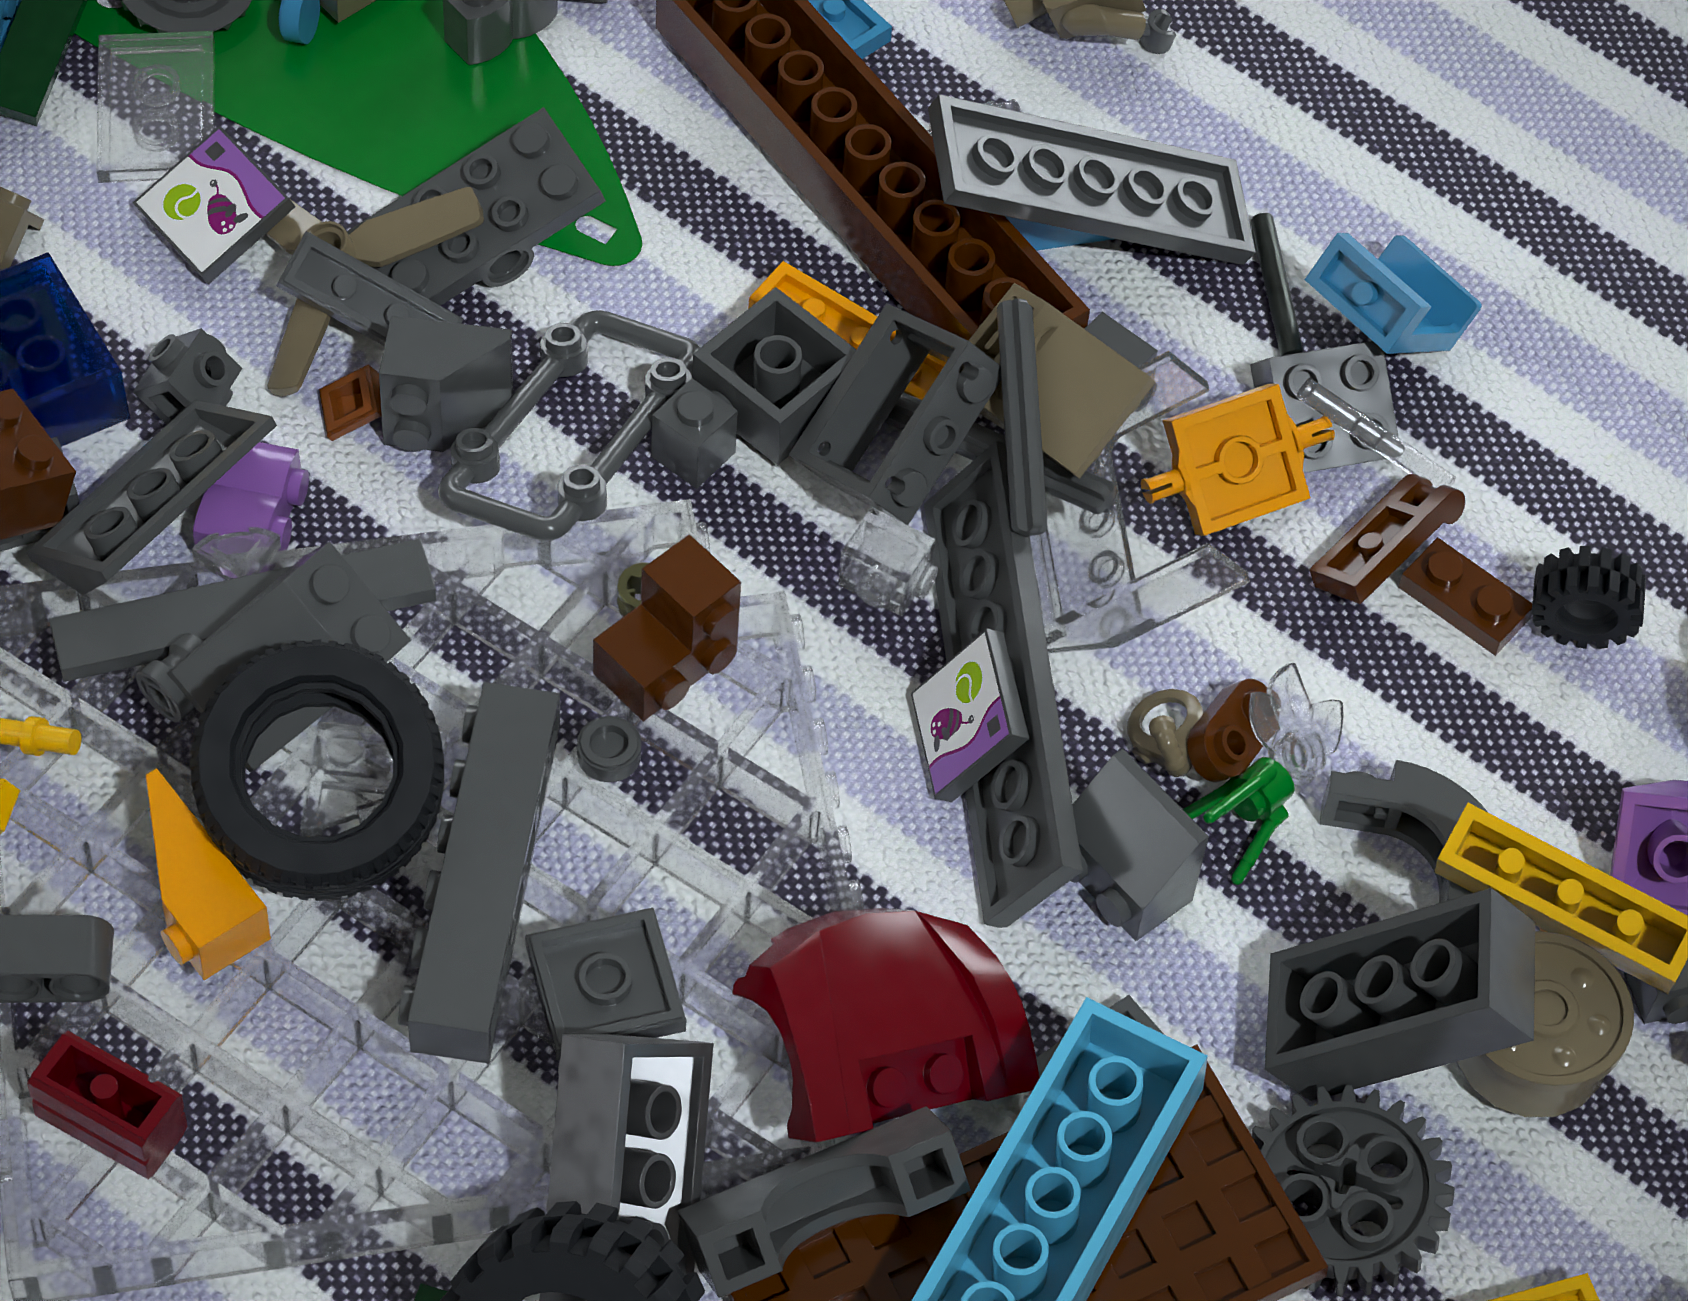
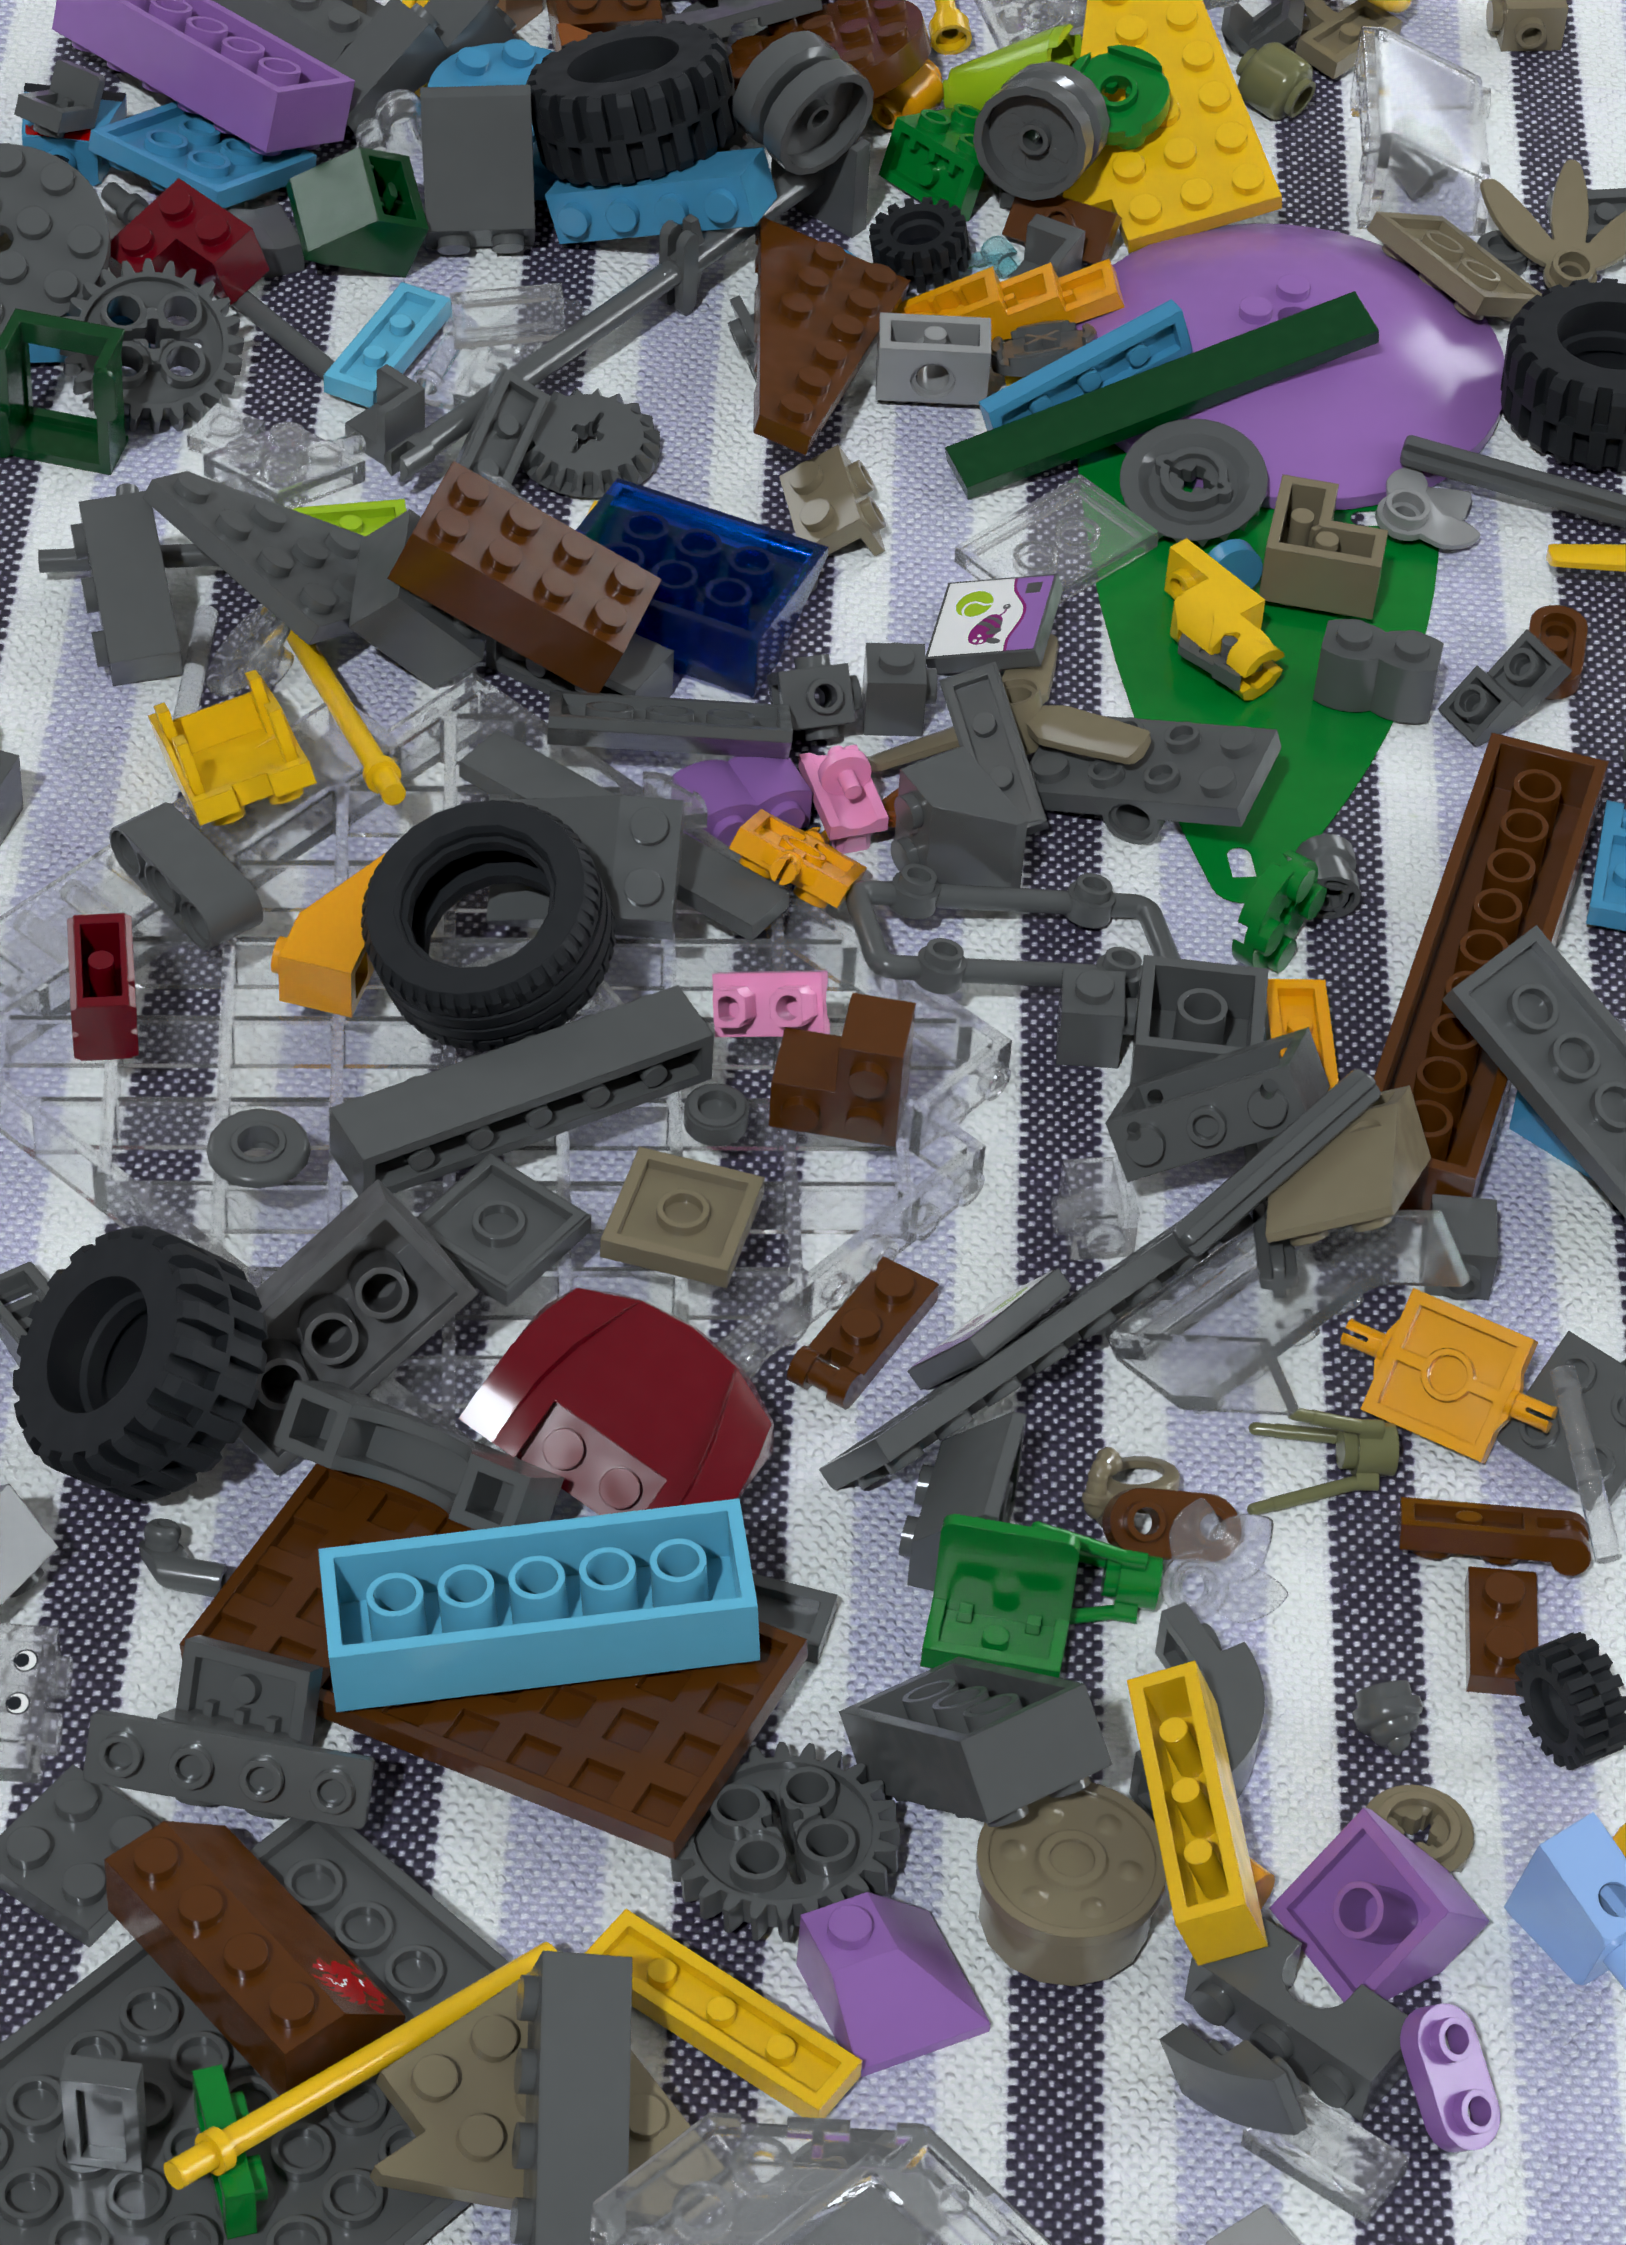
camera: 55 degrees right, 10 degrees down
(230, 310) = (896, 689): none -> dark grey brick
(318, 429) = (844, 796): none -> bright pink hips
(349, 62) = (1219, 622): none -> yellow plate
(369, 1076) = (258, 1130): none -> dark grey piece
(374, 508) = (798, 858): none -> light orange plate
(547, 631) = (768, 1002): none -> bright pink hips
(675, 185) = (1335, 872): none -> dark grey wheel
(704, 240) = (1277, 911): none -> green plate
(709, 844) = (682, 1217): none -> dark tan plate
(877, 803) = (864, 1333): none -> reddish brown plate
(1240, 897) = (1001, 1595): none -> green bracket
(1257, 553) = (1362, 1446): none -> olive plant
(1497, 717) = (1388, 1714): none -> dark grey plate
(1516, 1211) = (886, 1980): none -> medium lavender slope
(1622, 756) = (1415, 1807): none -> dark tan gear

